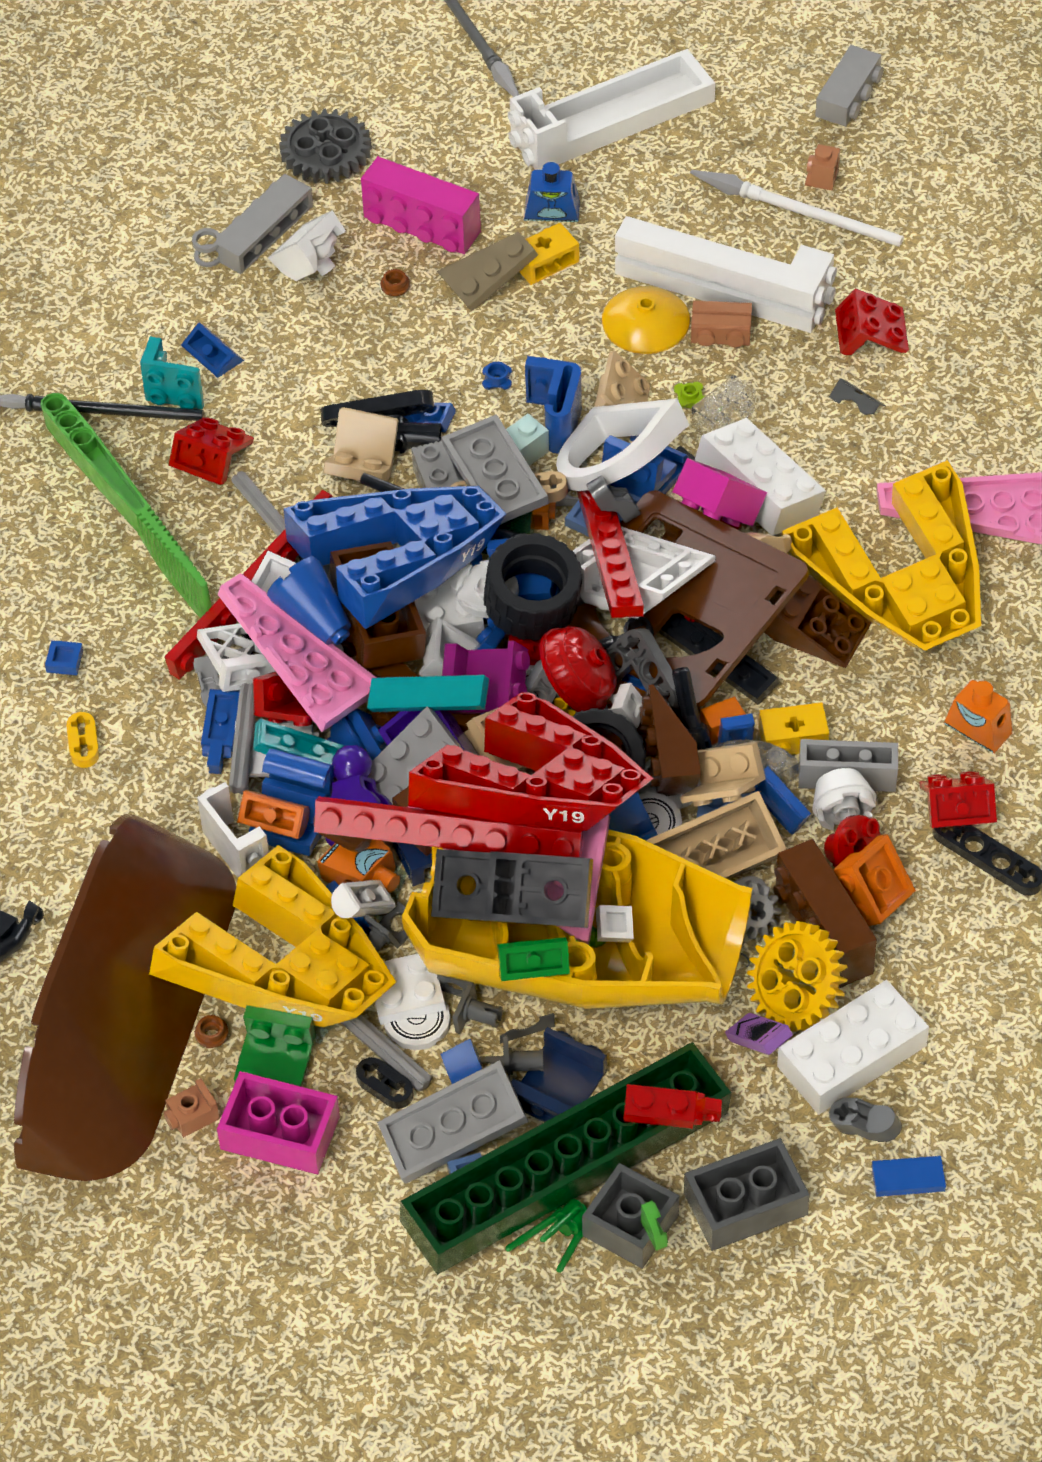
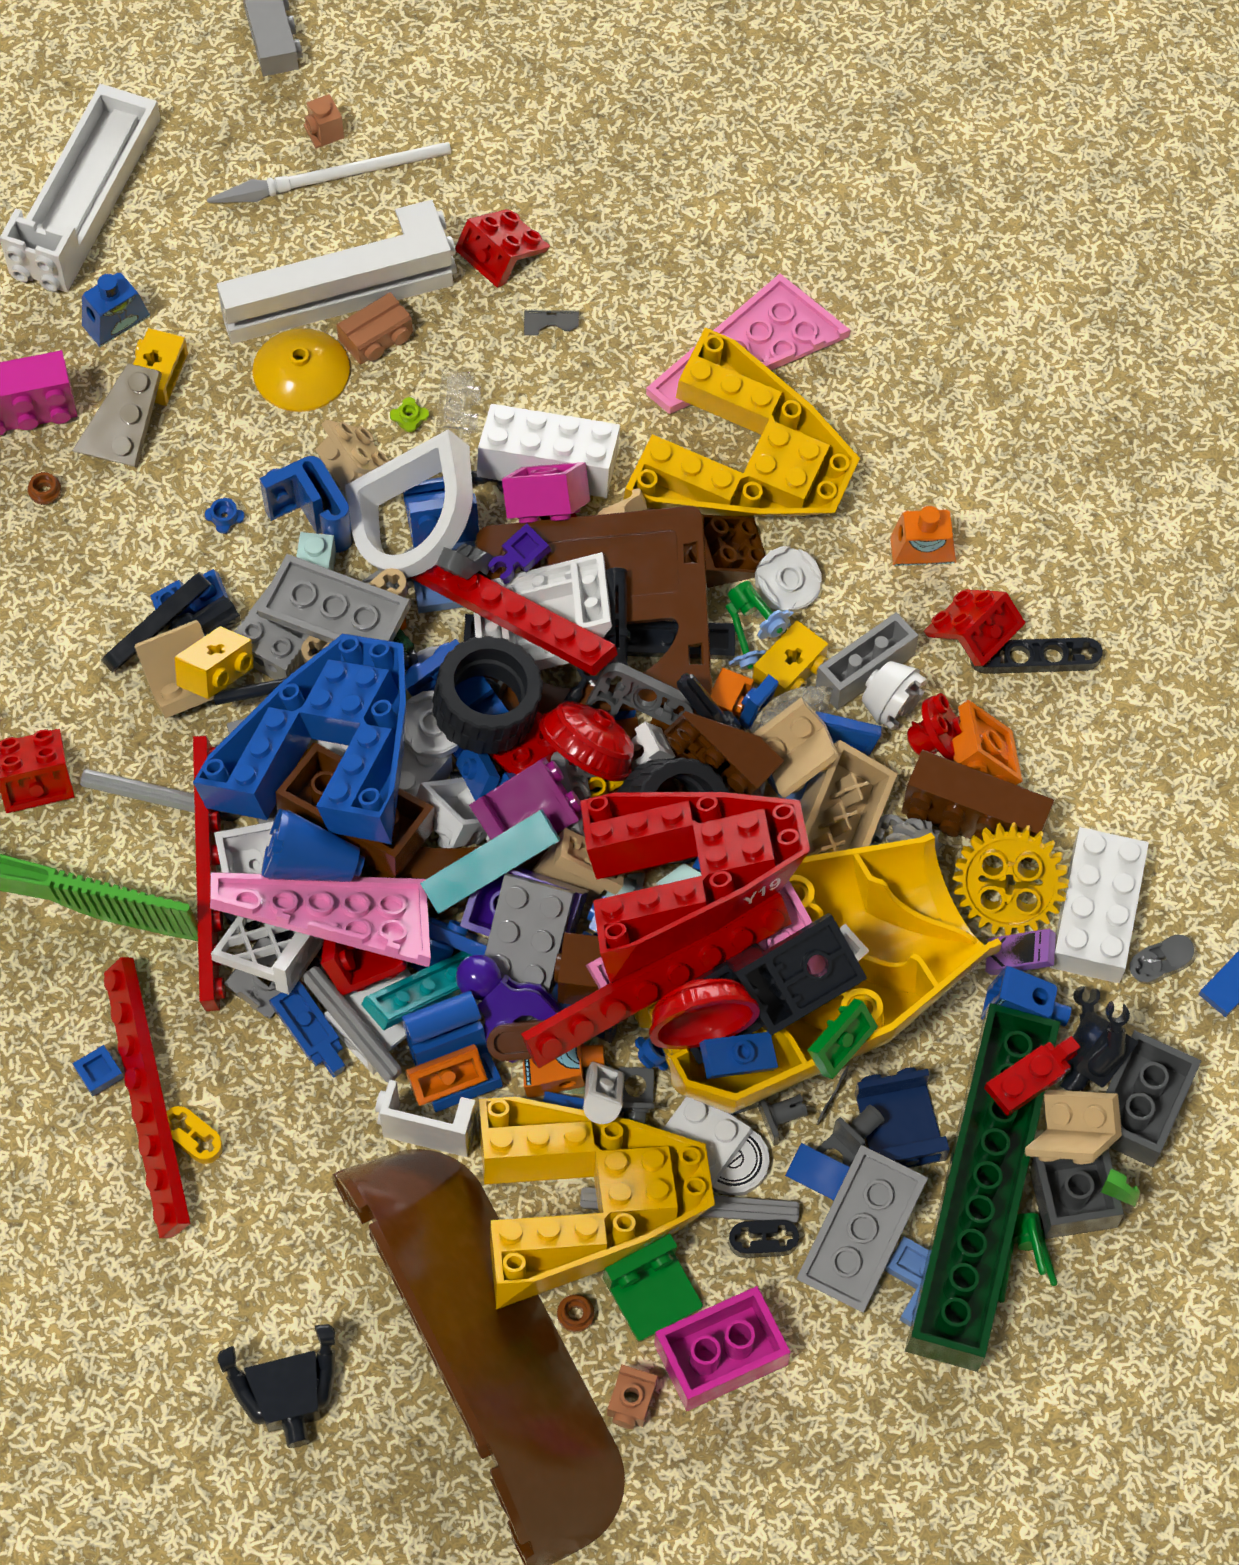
camera: 45 degrees left, 10 degrees up
(69, 701) = (146, 1098): none -> red plate
(383, 453) = (214, 662): none -> yellow brick
(444, 867) = (701, 1012): none -> red hat
(459, 925) = (738, 1055): none -> blue plate
(660, 520) = (521, 550): none -> dark purple plate
(673, 616) = (618, 583): none -> black pin
(674, 1165) = (1077, 1126): none -> tan bracket
(729, 1062) = (1027, 994): none -> blue torso
(741, 1131) = (1101, 1042): none -> black torso
(794, 687) = (747, 600): none -> plant
(850, 677) = (788, 579): none -> white tile

